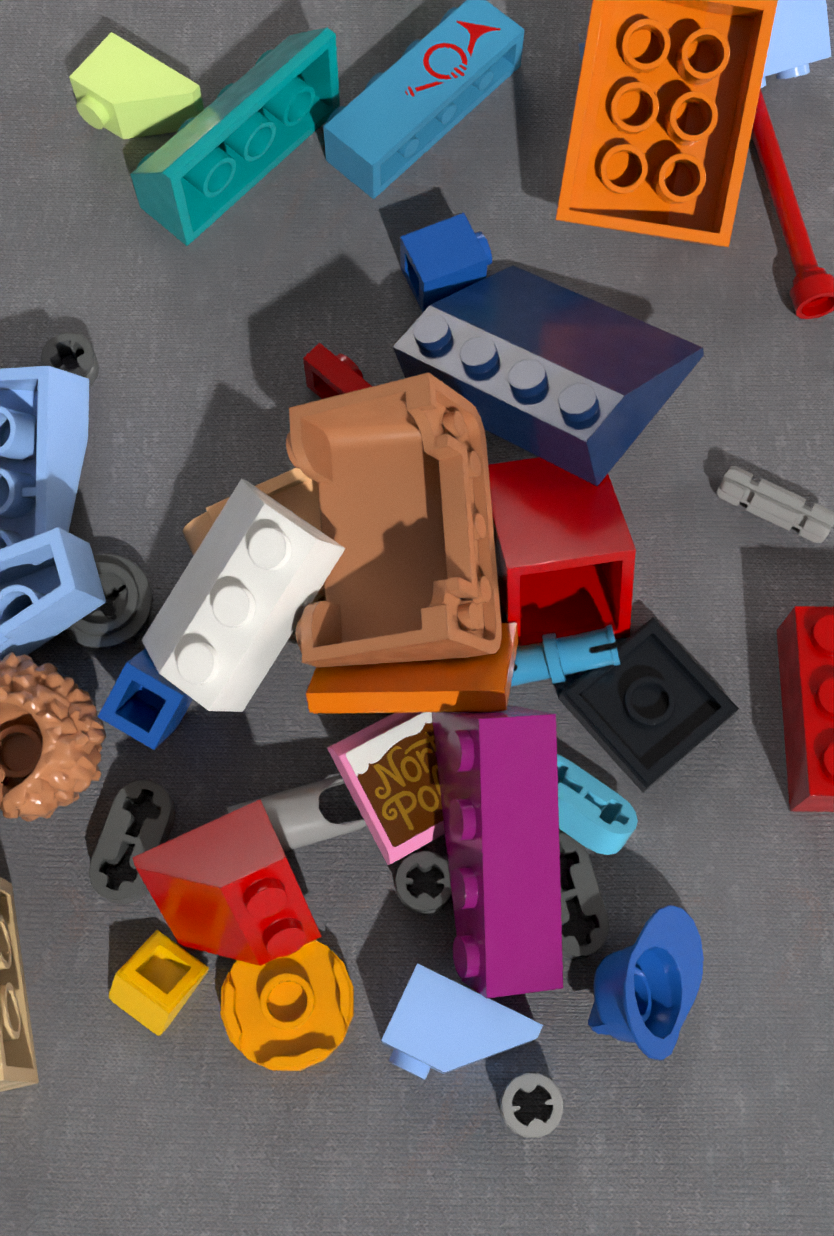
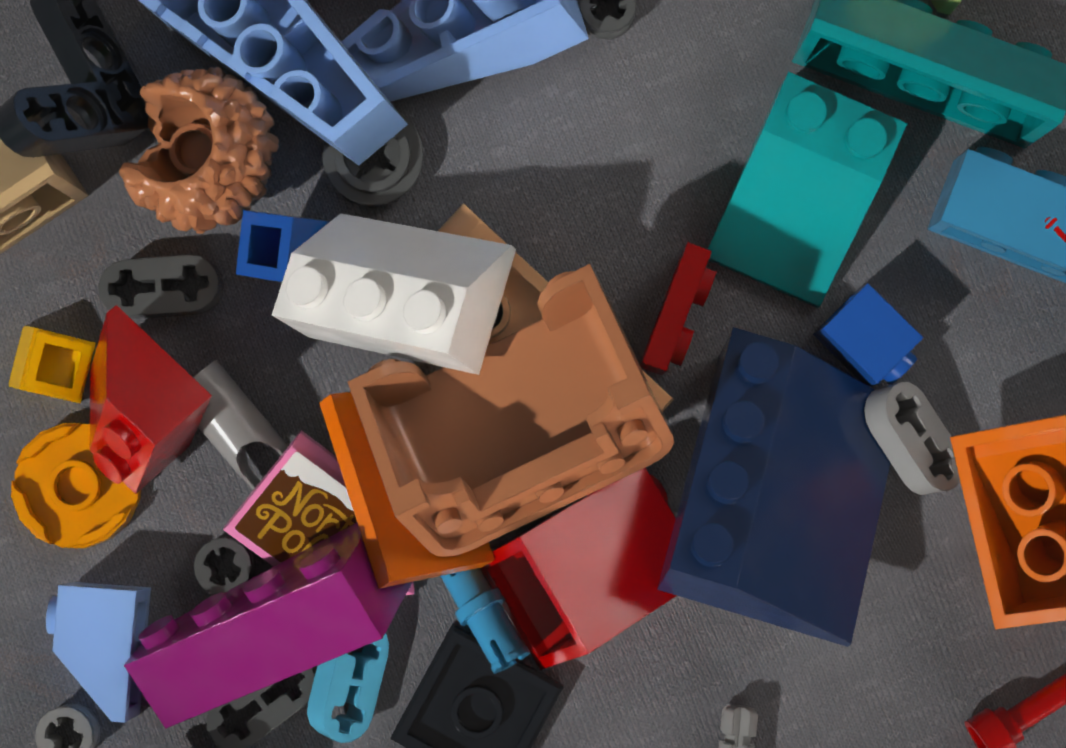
camera: 75 degrees right, 15 degrees up
(296, 262) = (805, 189): none -> teal slope
(544, 259) = (912, 439): none -> light grey beam

